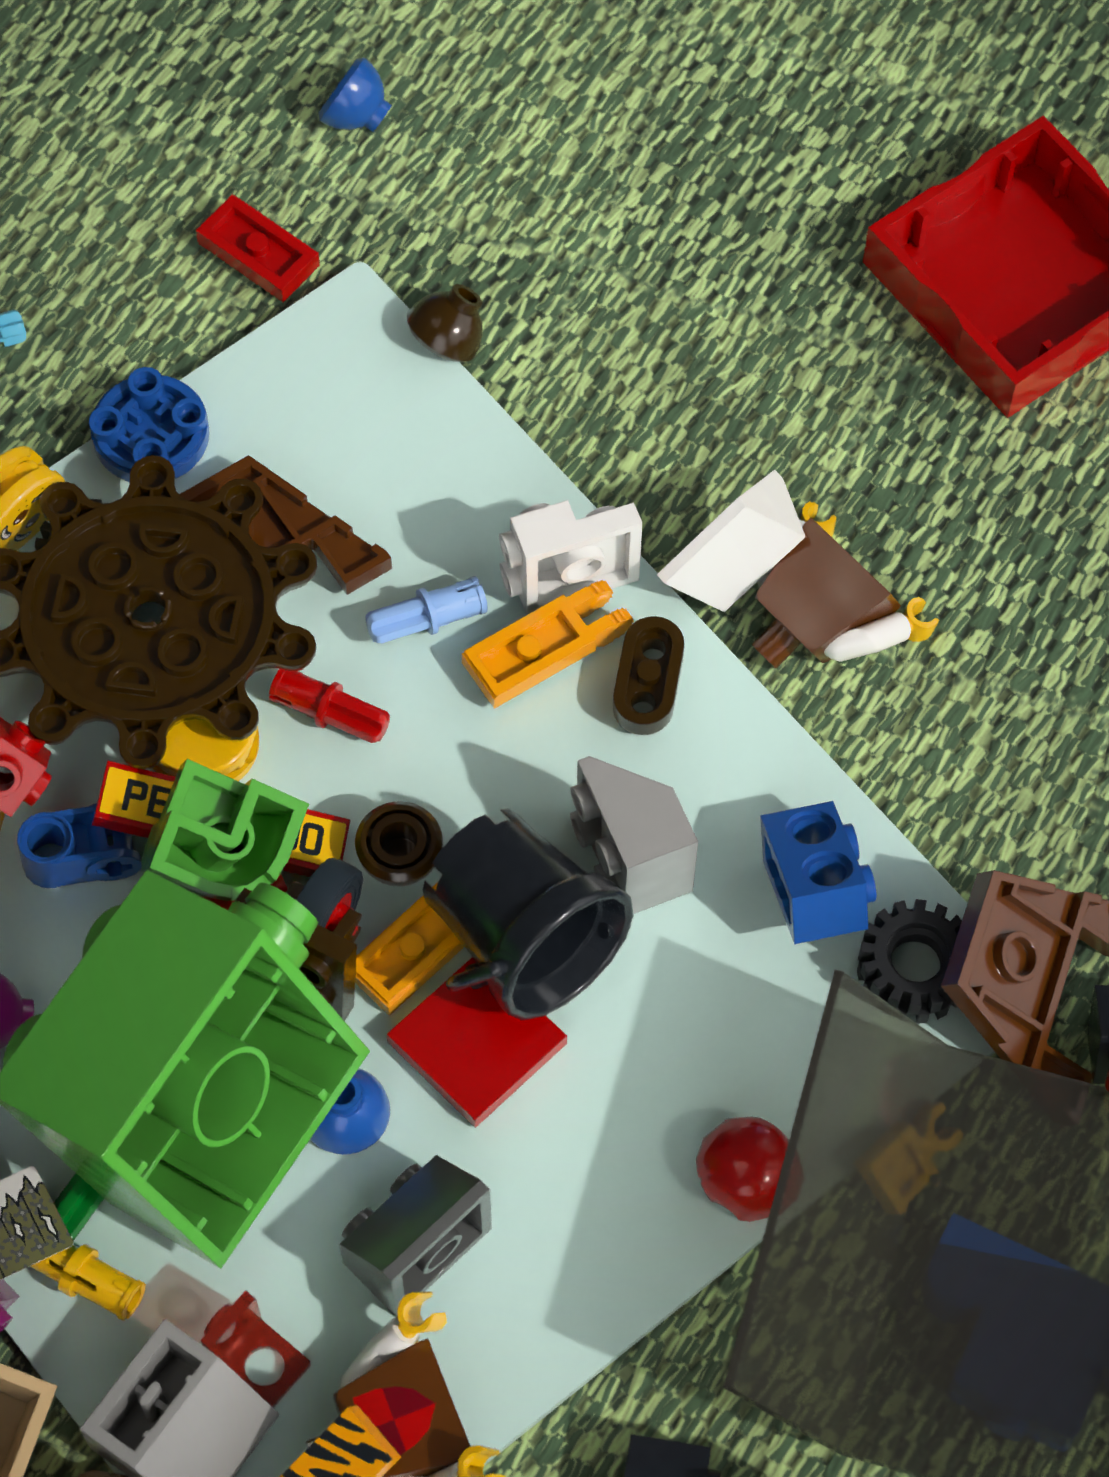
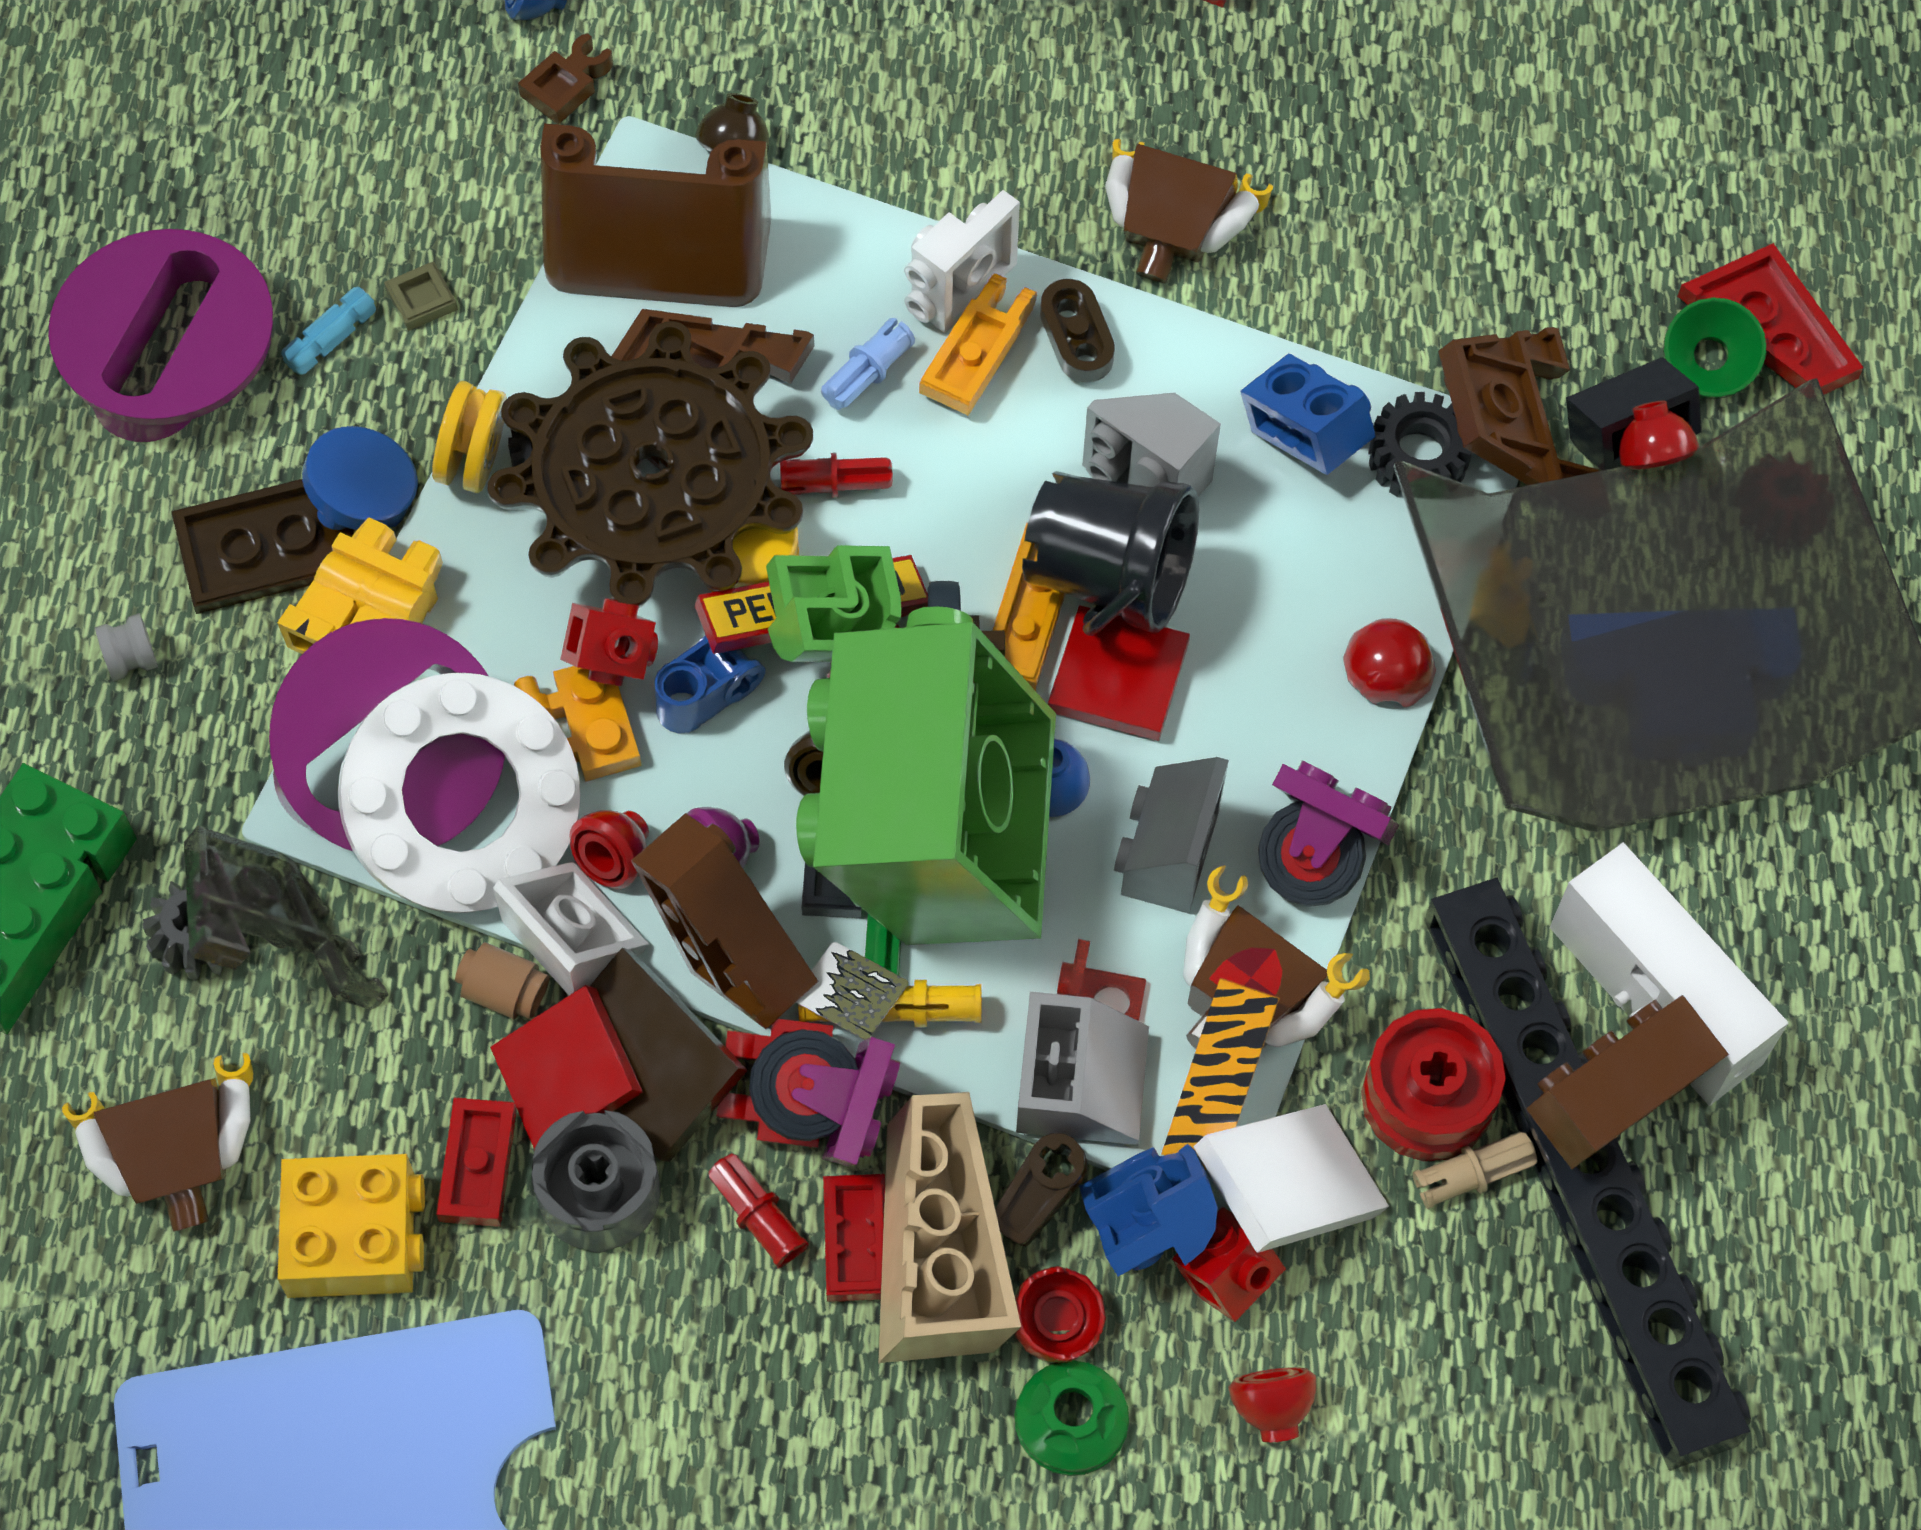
camera: 30 degrees left, 0 degrees up
(72, 346) = (420, 296): none -> olive tile
(149, 418) = (533, 324): blue tile -> none
(257, 248) = (511, 140): red plate -> none
(300, 392) = (654, 229): none -> reddish brown windscreen
(325, 204) = (564, 84): none -> reddish brown plate
(398, 843) = (969, 549): dark brown brick -> none
(563, 1308) = (1316, 845): none -> plate
(738, 546) = (1088, 193): white slope -> none

